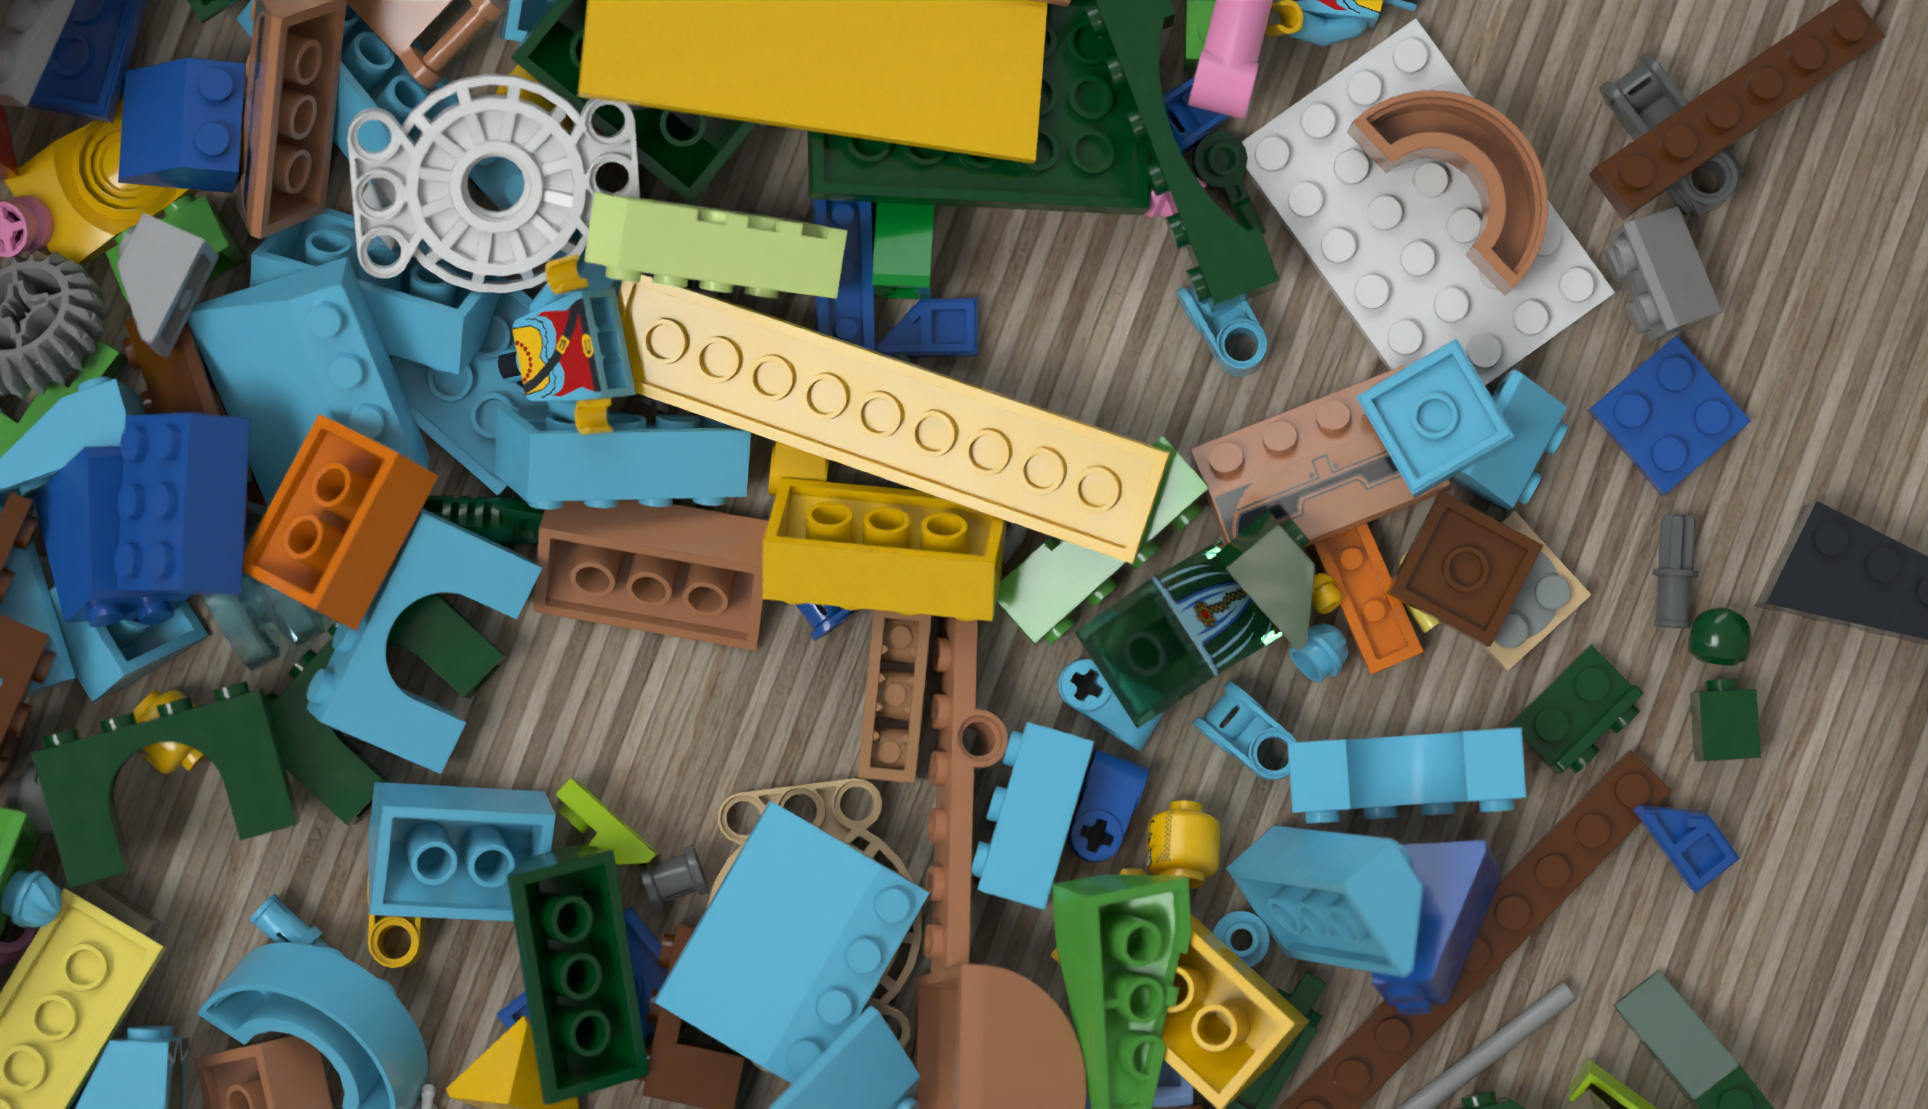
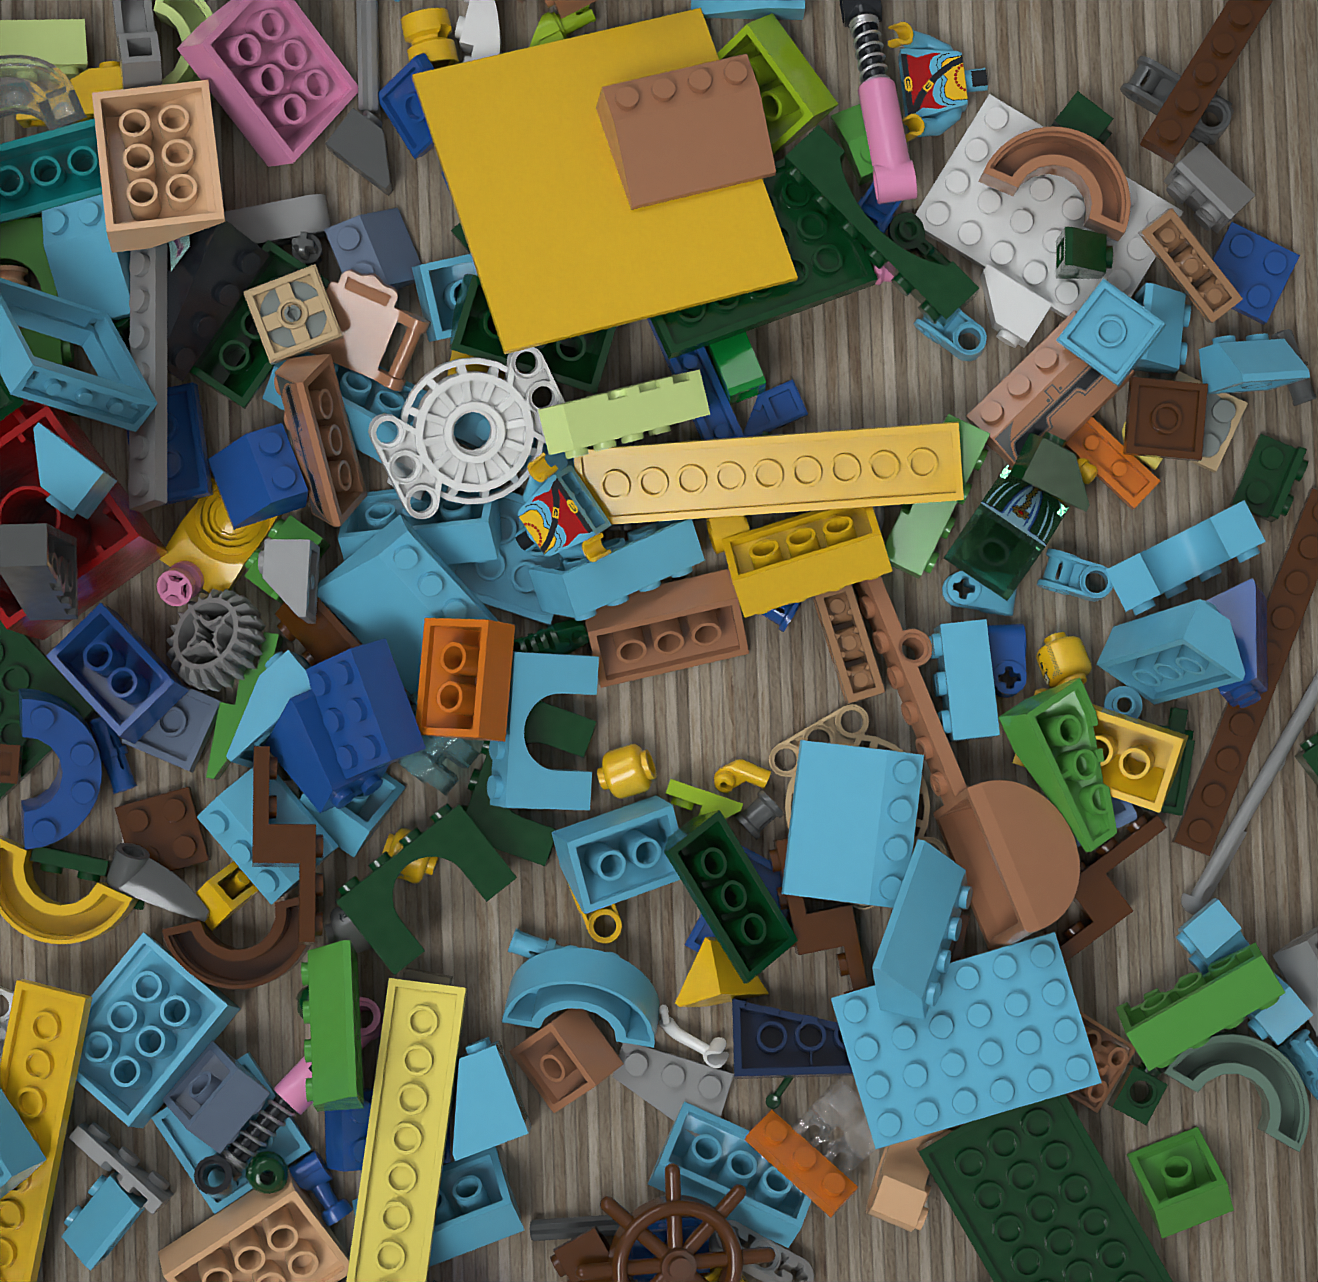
camera: 25 degrees left, 0 degrees up
(31, 899) = (373, 992): medium azure plate -> none
(517, 741) = (627, 771): none -> yellow head
(671, 808) = (738, 772): none -> yellow arm
(1321, 327) = (1012, 307): none -> white slope
(1323, 654) = (1100, 509): medium azure plate -> none
(1446, 293) = (1082, 254): none -> dark green slope
(1532, 108) = (1085, 117): none -> dark green brick
(1588, 371) = (1190, 265): none -> medium nougat brick
(1613, 542) = (1249, 364): none -> medium azure slope

